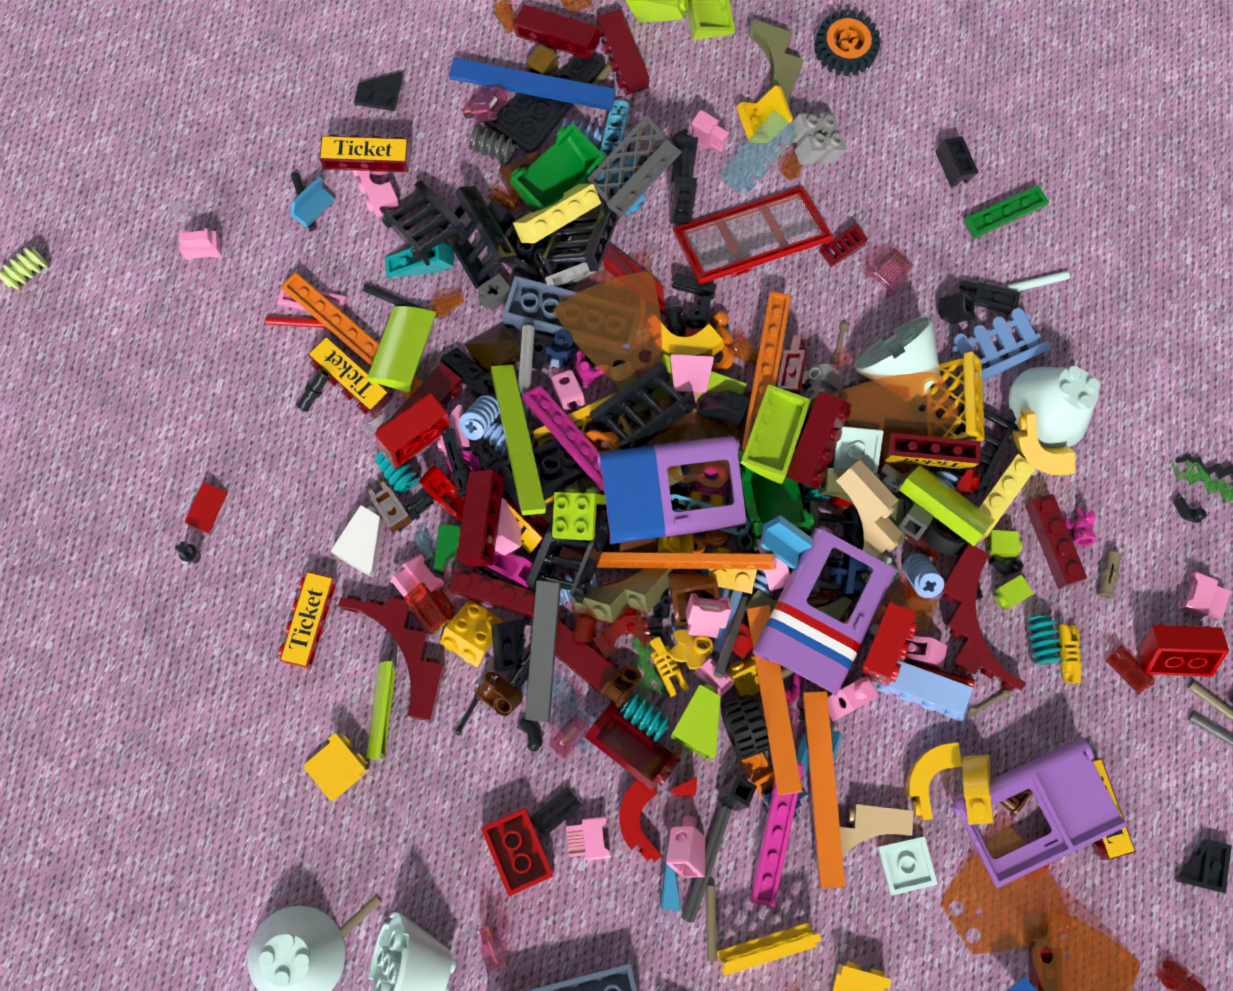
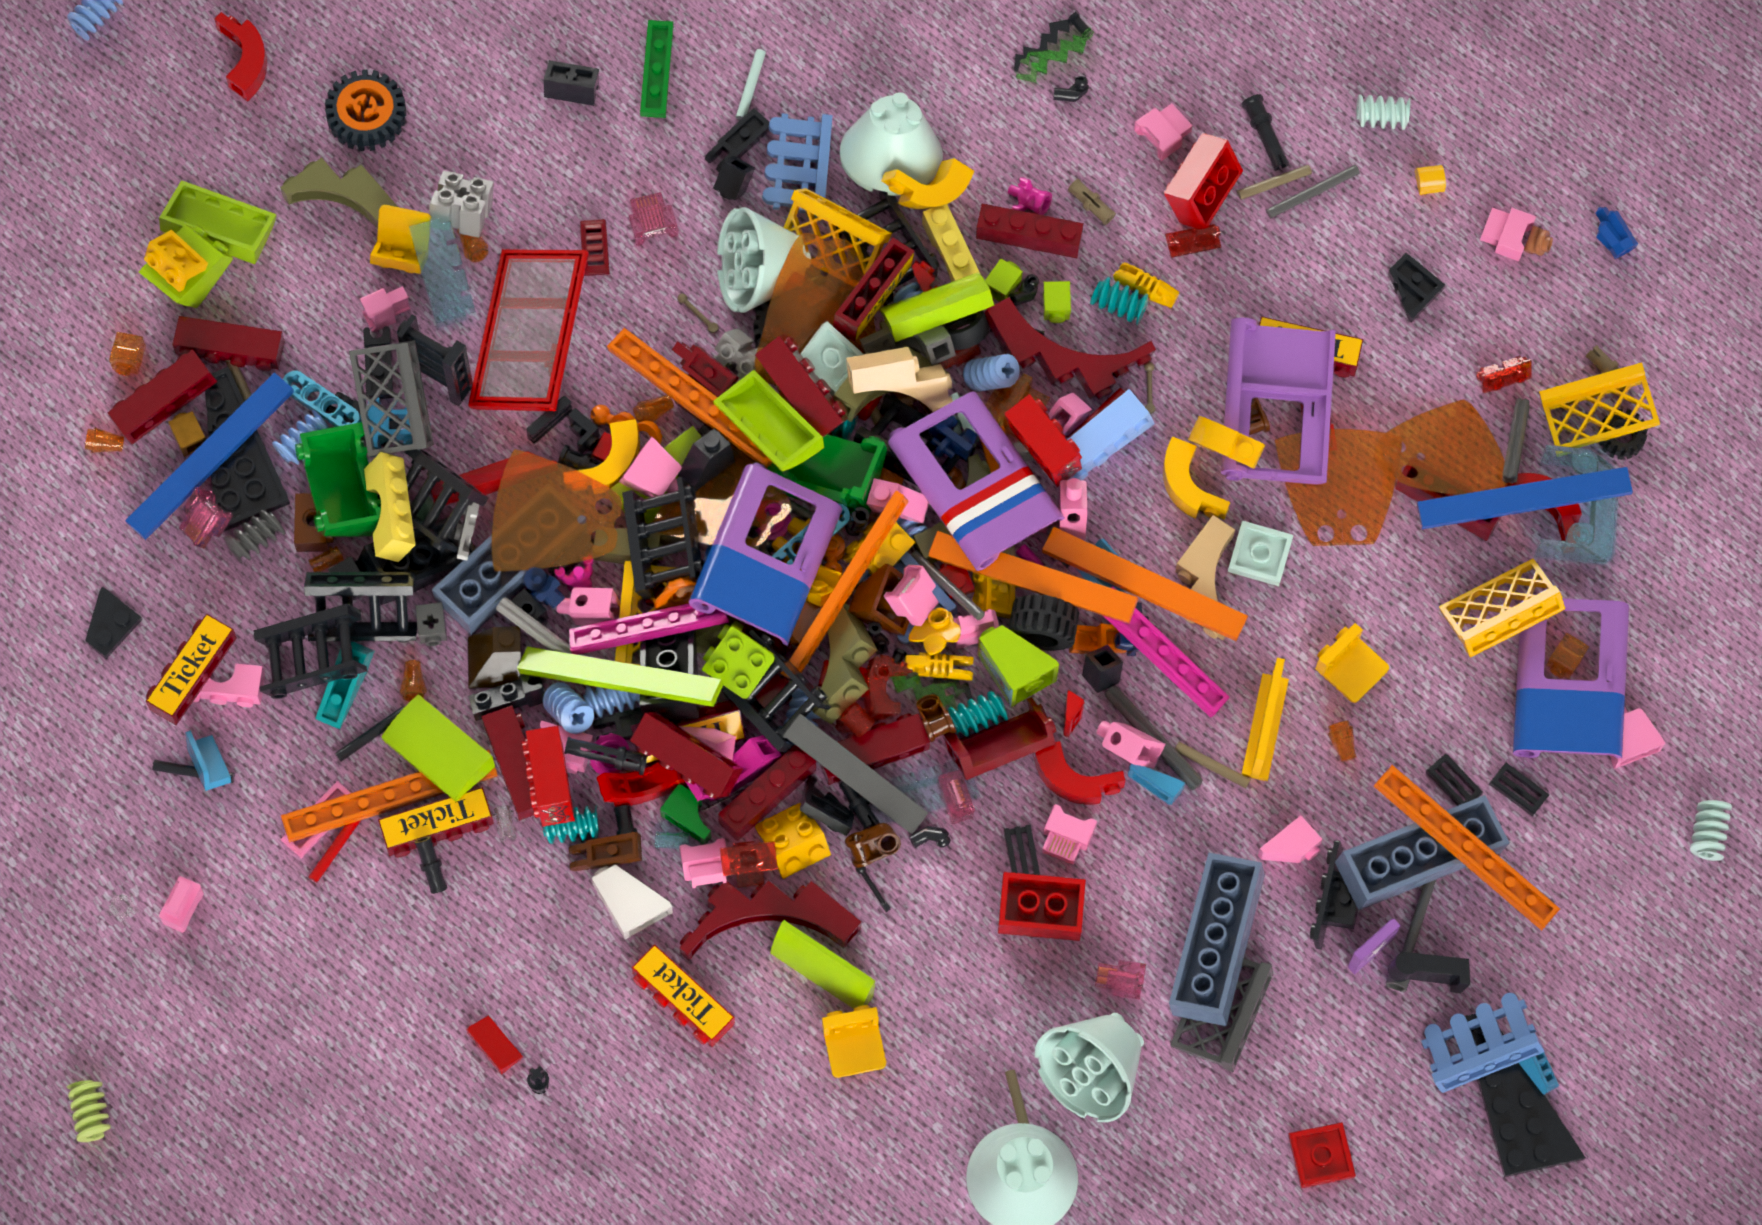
camera: 60 degrees left, 5 degrees down
(784, 540) = (885, 474): dark azure panel -> none

